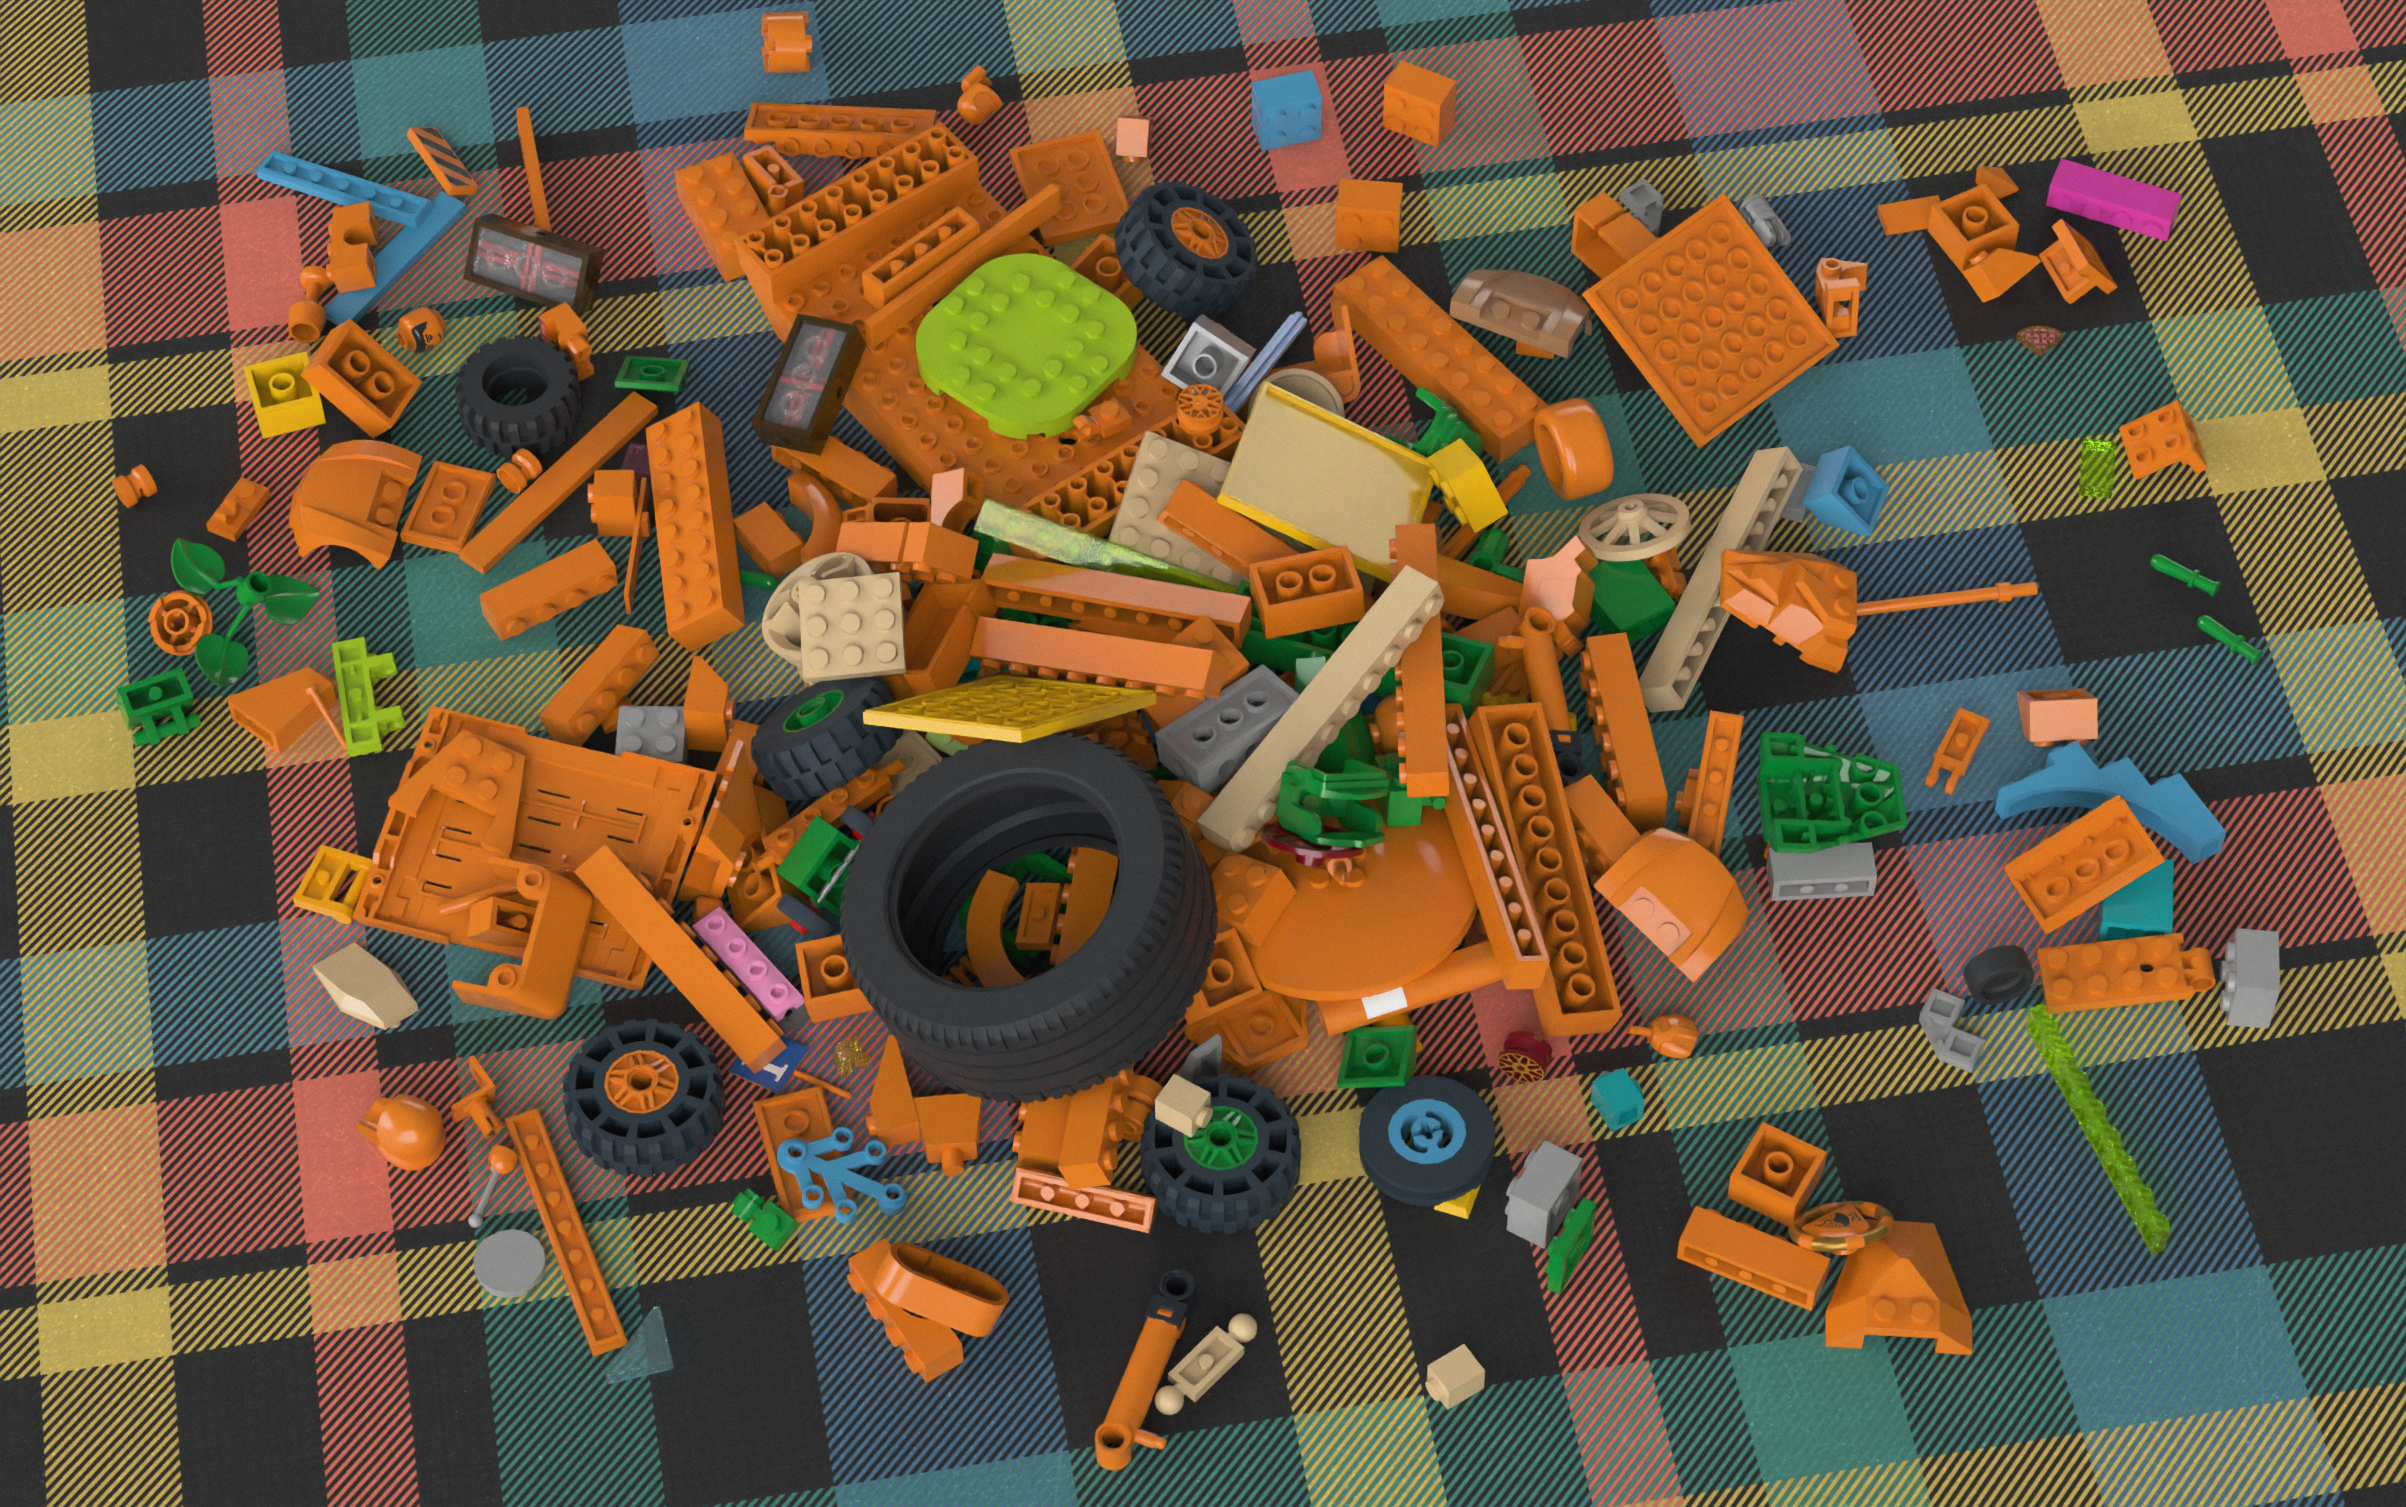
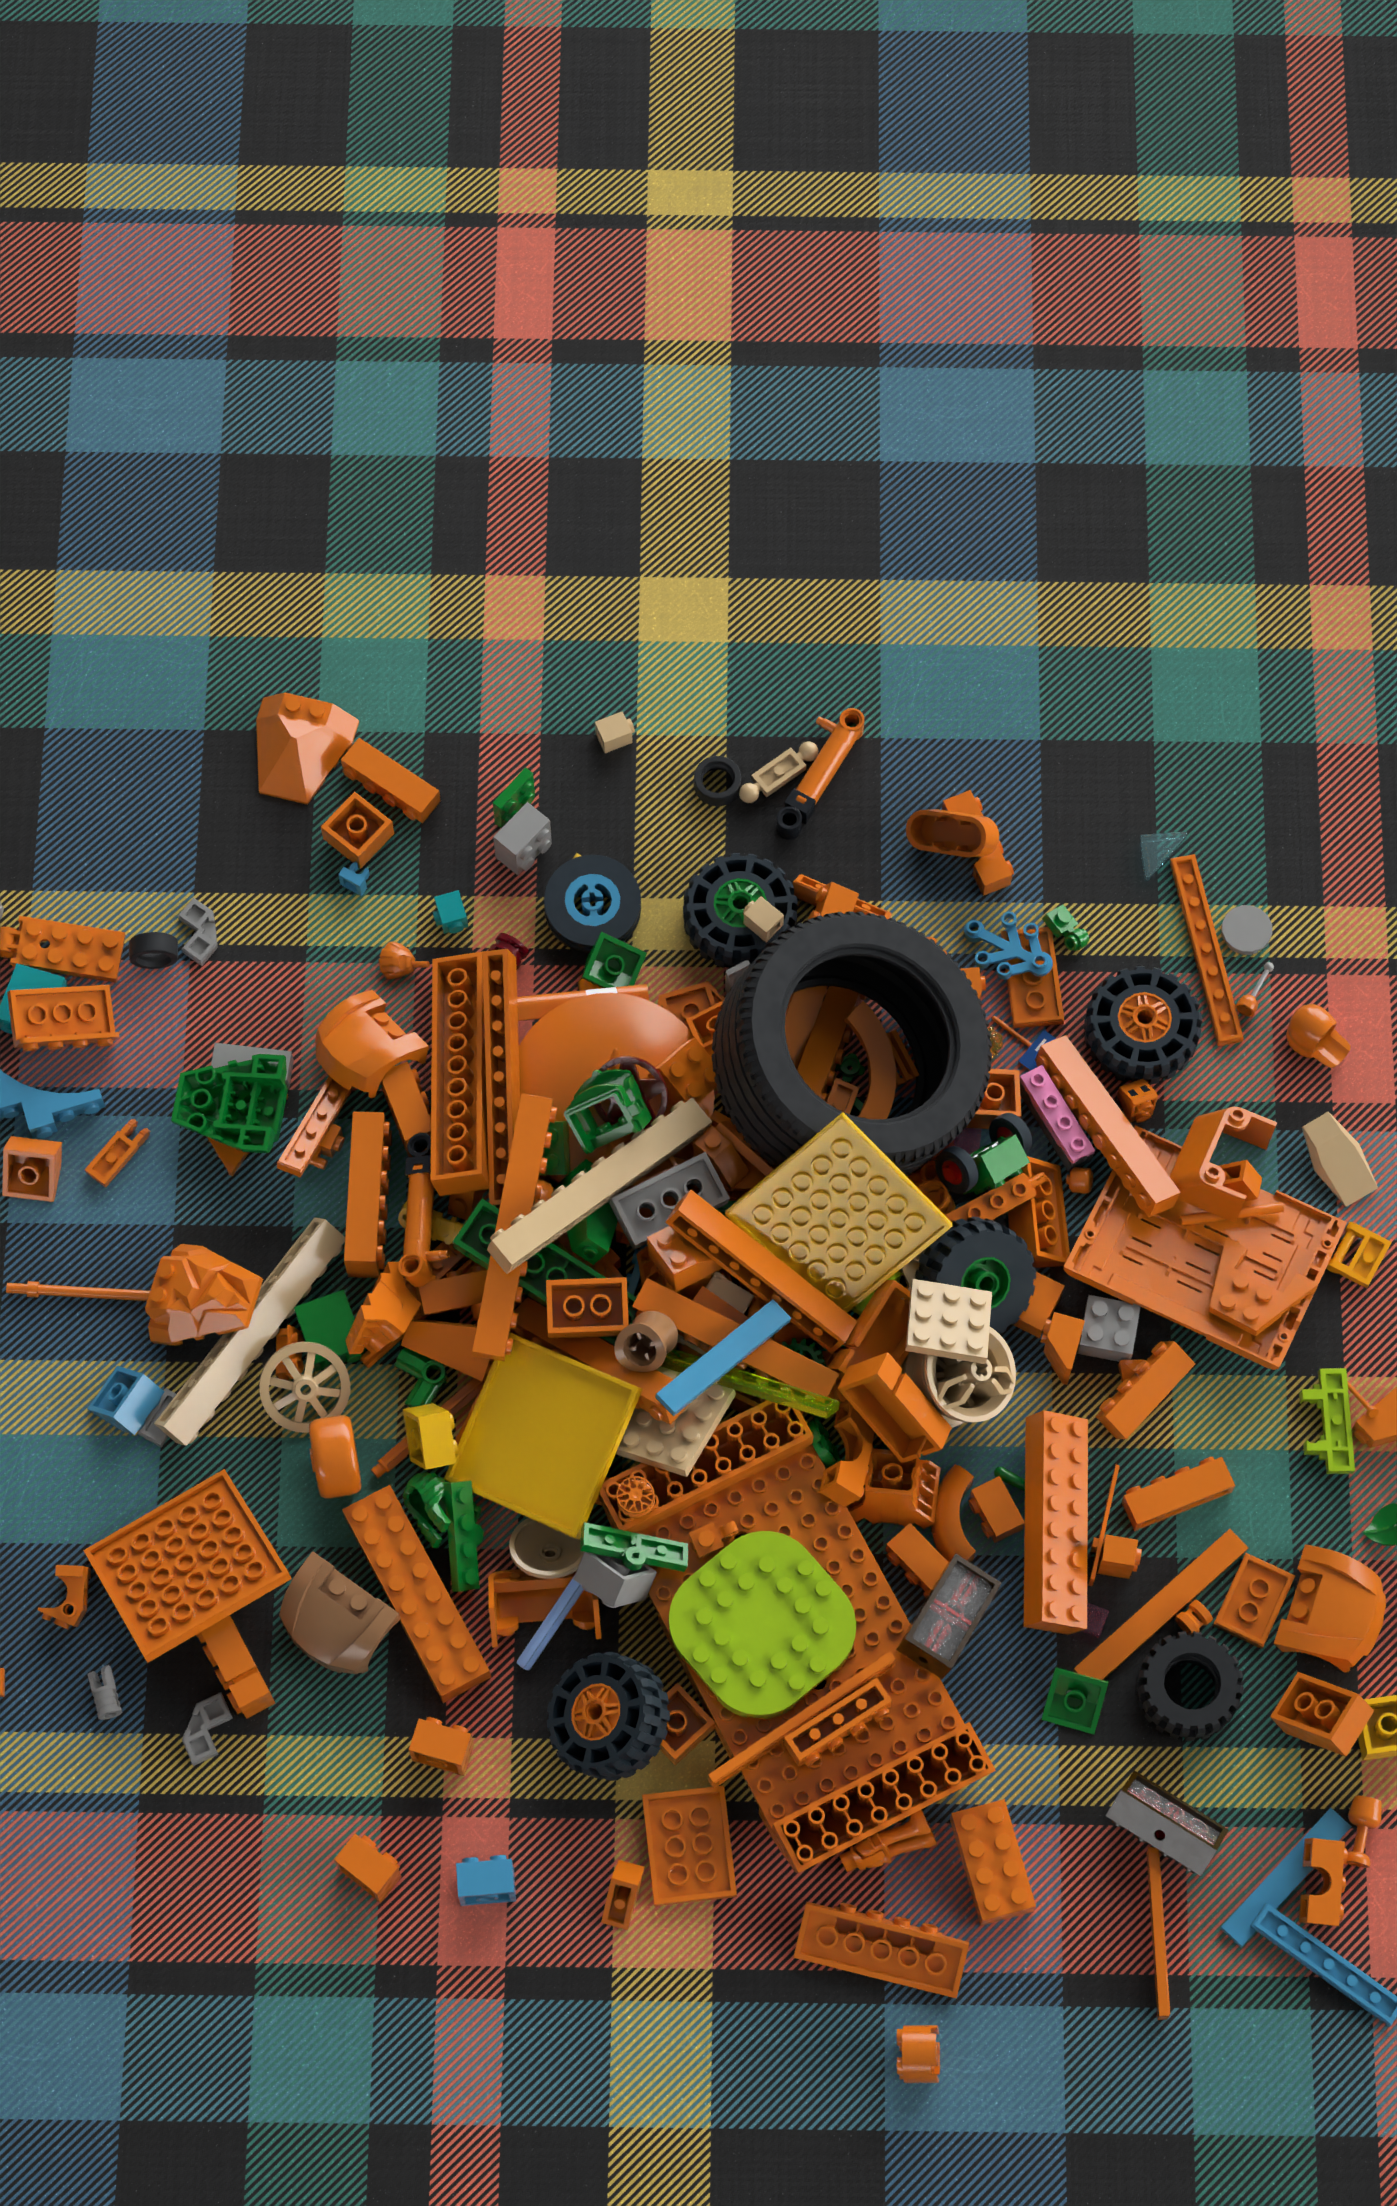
camera: 170 degrees left, 15 degrees up
(421, 330) = (1267, 1786): orange head -> none
(442, 161) = (1239, 1981): orange tile -> none
(477, 1103) = (1261, 1051): orange bracket -> none
(568, 332) = (1142, 1737): orange hips -> none
(639, 996) = (1137, 1100): none -> orange slope
(726, 834) = (1063, 1213): orange wedge -> none
(773, 180) = (949, 1885): orange hinge -> none
(978, 99) = (754, 1959): orange piece -> none
(1124, 549) = (723, 1357): none -> dark azure tile
(1166, 384) = (634, 1548): none -> green hinge
(1224, 560) = (646, 1341): none -> medium nougat hat
(1291, 1311) = (717, 763): none -> black tyre
(1400, 407) = (462, 1536): none -> green hinge
(1761, 1111) = (354, 881): none -> dark azure tile
(1842, 1225) = (324, 780): piece -> none
(2102, 1137) = (124, 843): clear neon green plate -> none

